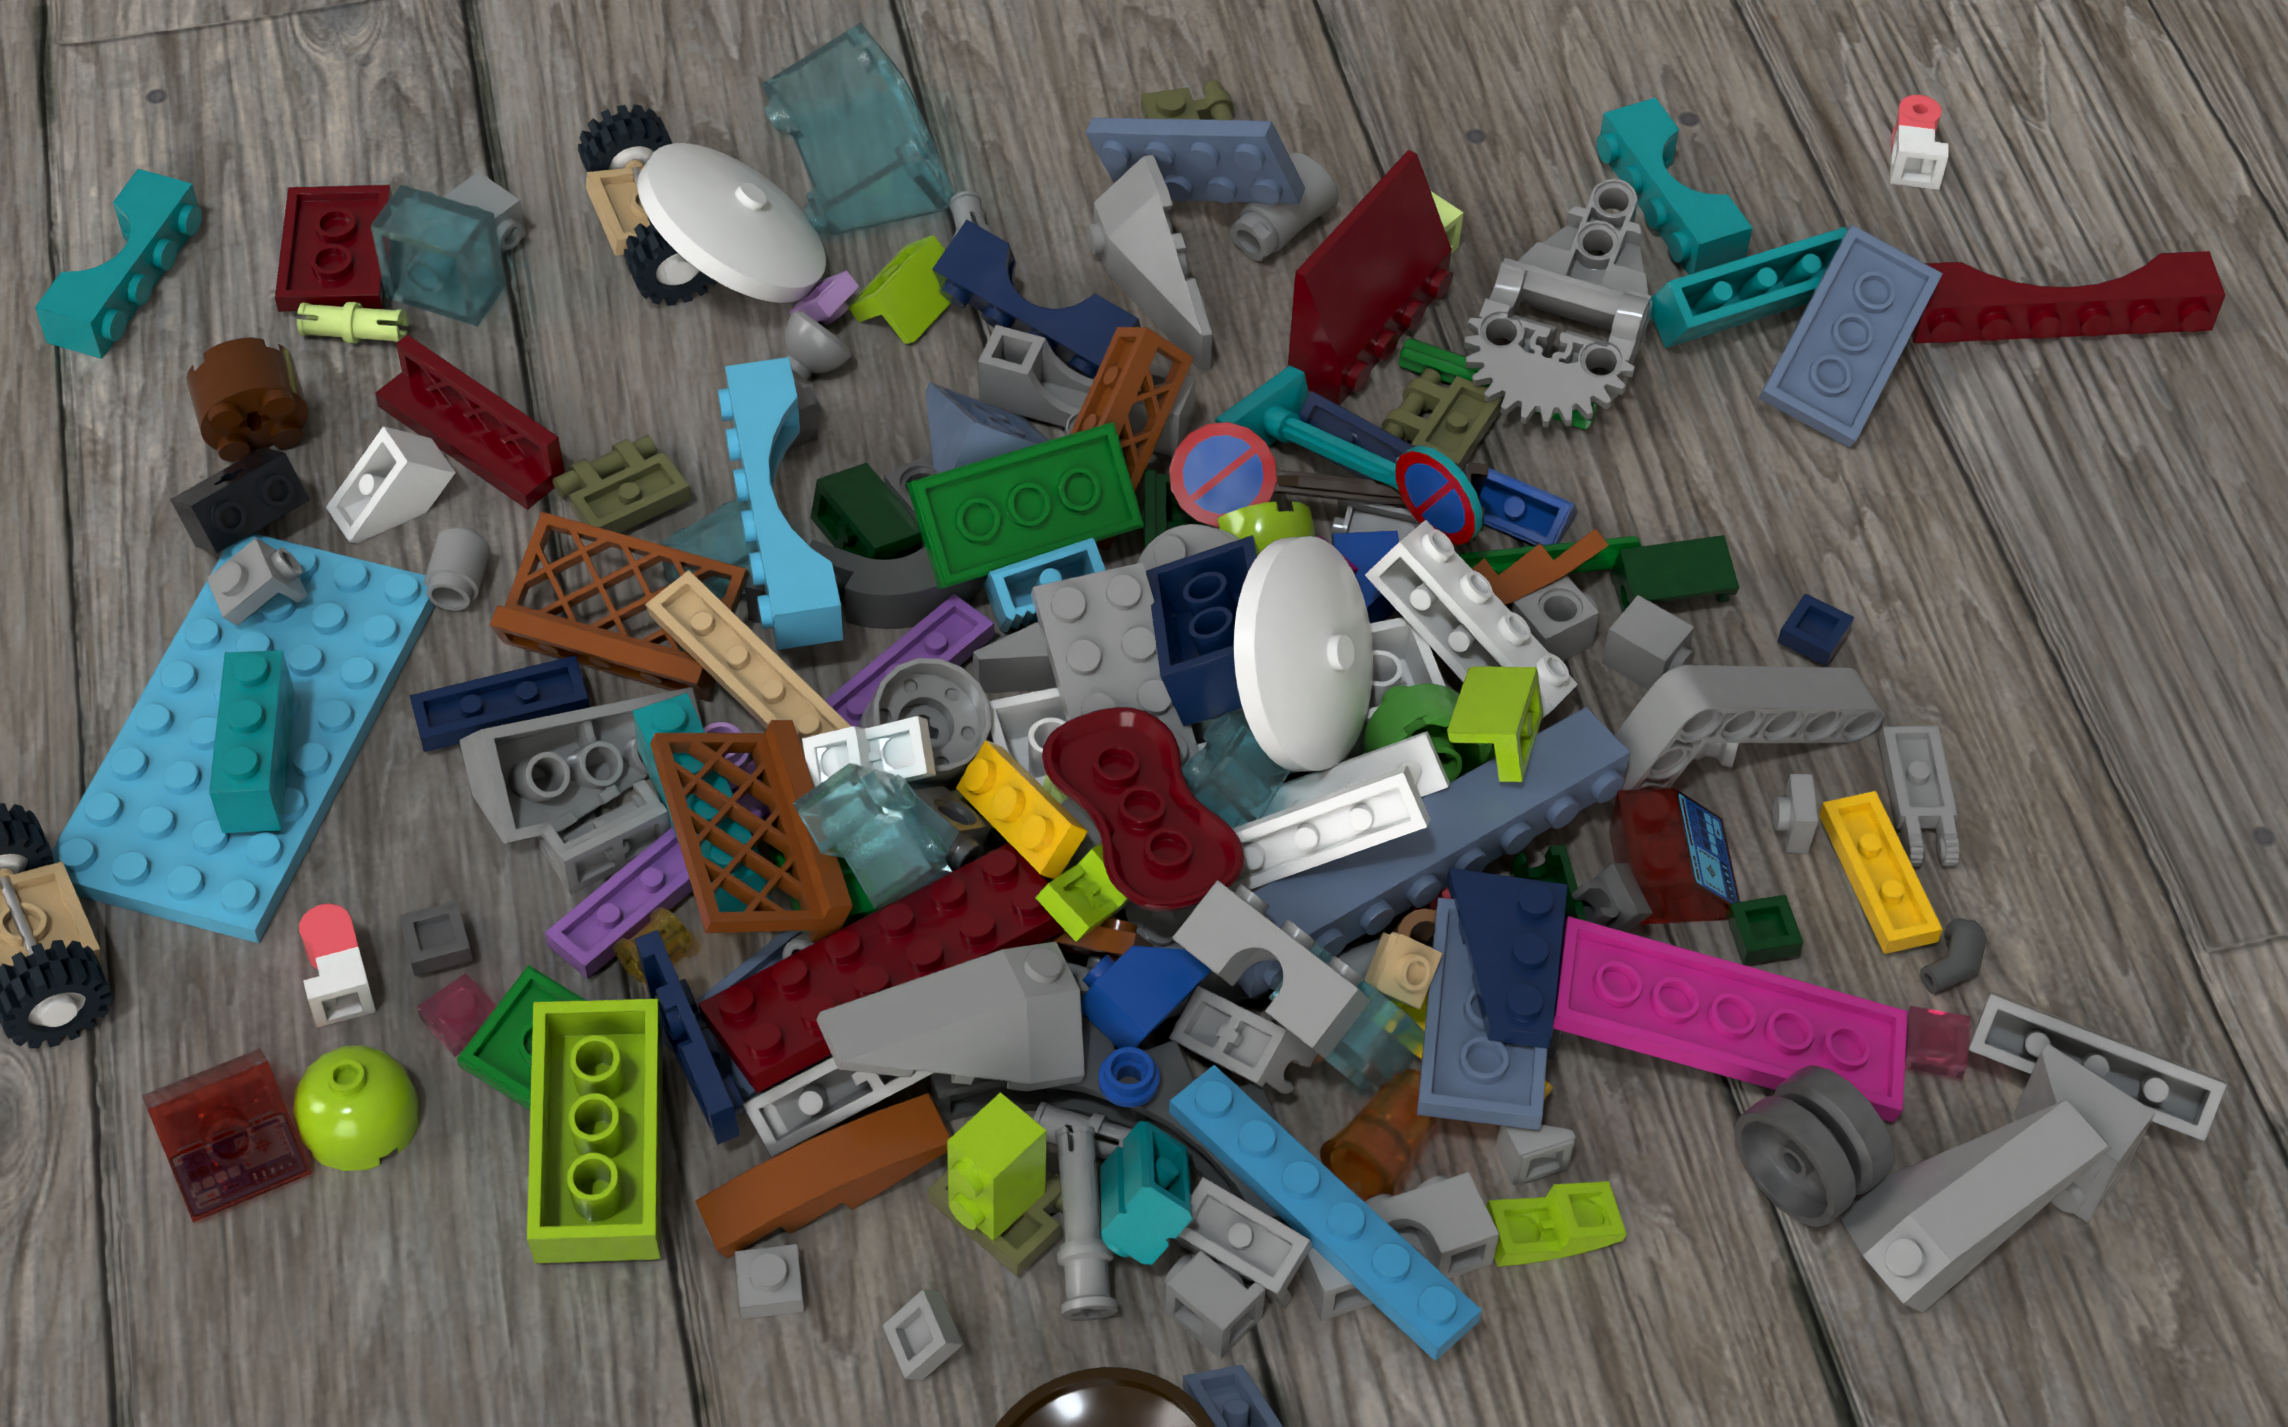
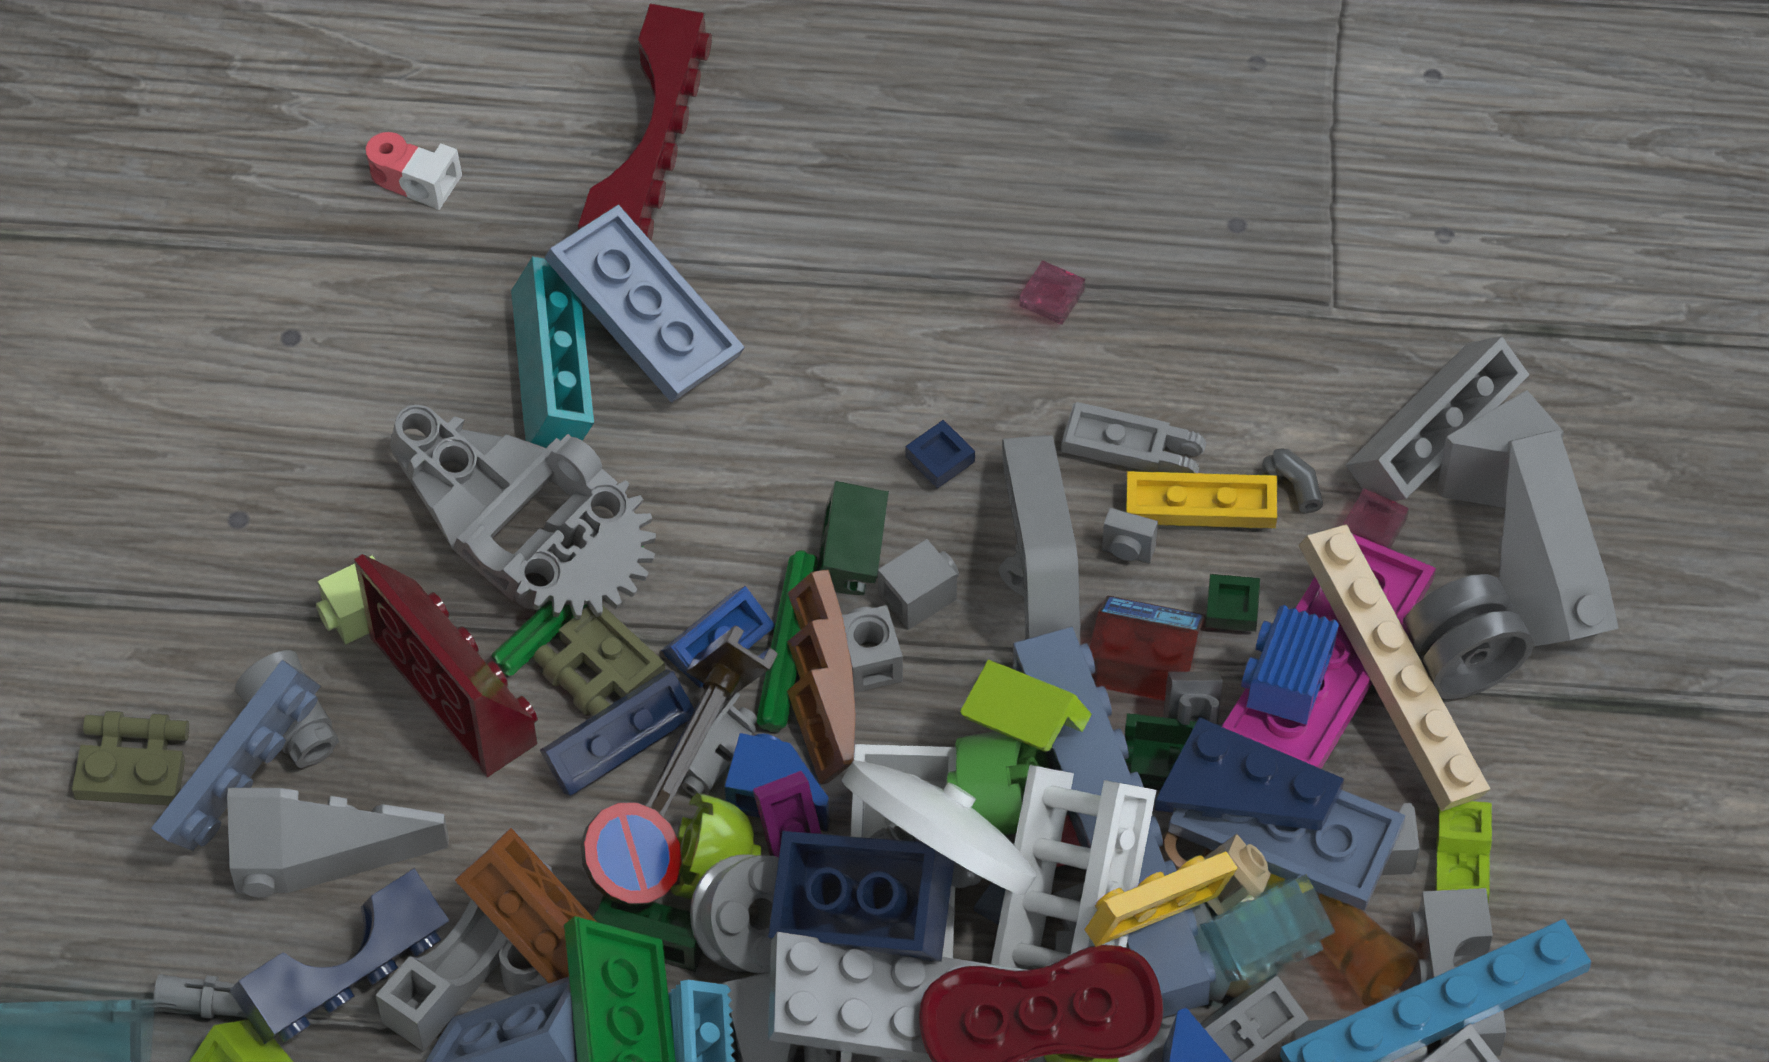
camera: 70 degrees left, 5 degrees up
(1233, 772) = (1003, 930): clear light blue brick -> none
(1315, 999) = (1196, 977): light grey arch -> none
(1316, 878) = (1159, 897): none -> yellow plate
(1426, 478) = (730, 688): teal piece -> none
(1461, 613) = (880, 706): white brick -> none
(1677, 961) = (1291, 664): none -> blue brick
(1695, 225) = (447, 378): teal arch -> none
(1735, 1078) = (1394, 667): none -> tan plate
(2068, 678) = (1052, 292): none -> clear pink plate

